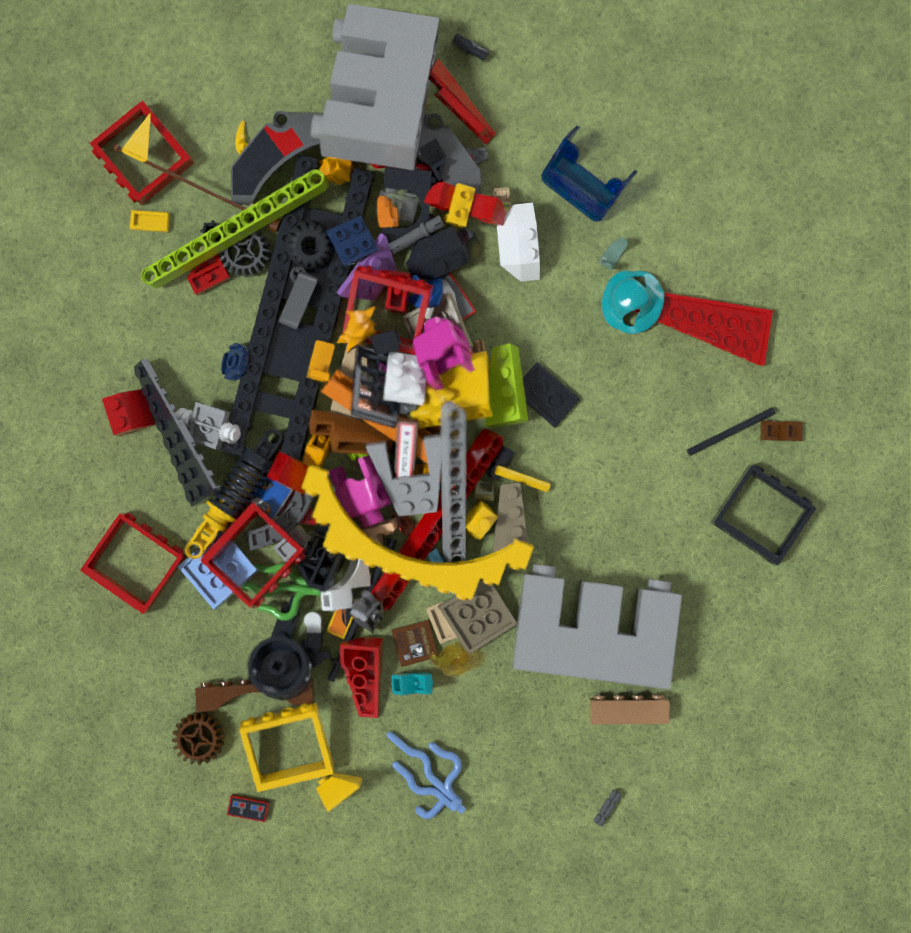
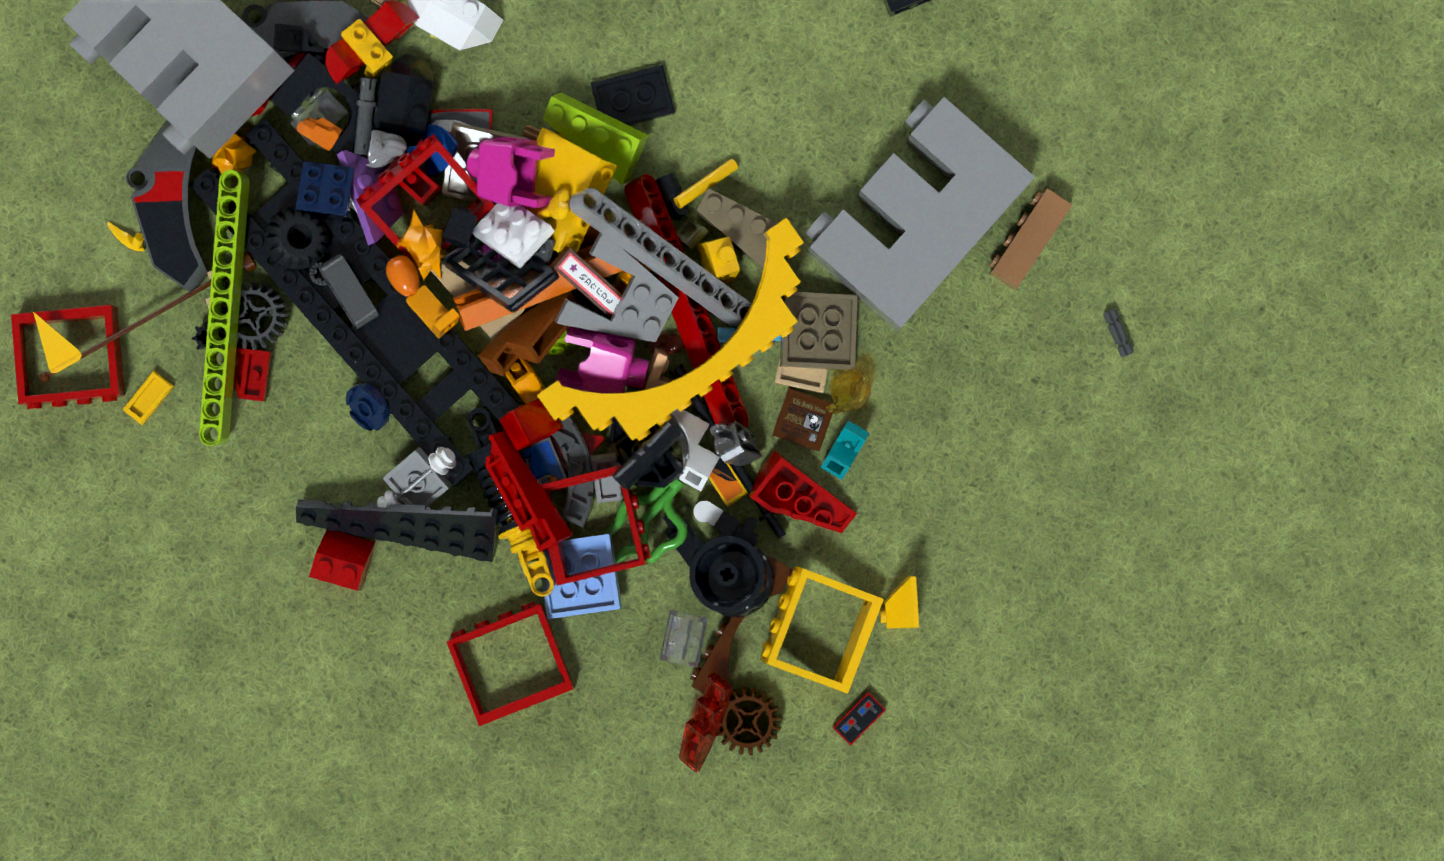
camera: 60 degrees left, 0 degrees up
(177, 713) = (706, 722): none -> clear red slope
(222, 662) = (683, 638): none -> clear brick
(242, 500) = (524, 494): none -> red wedge
(319, 562) = (646, 456): none -> black axle
(330, 328) = (403, 275): none -> orange animal
(404, 260) = (384, 148): none -> light grey hair
(445, 793) = (987, 496): medium blue plant -> none

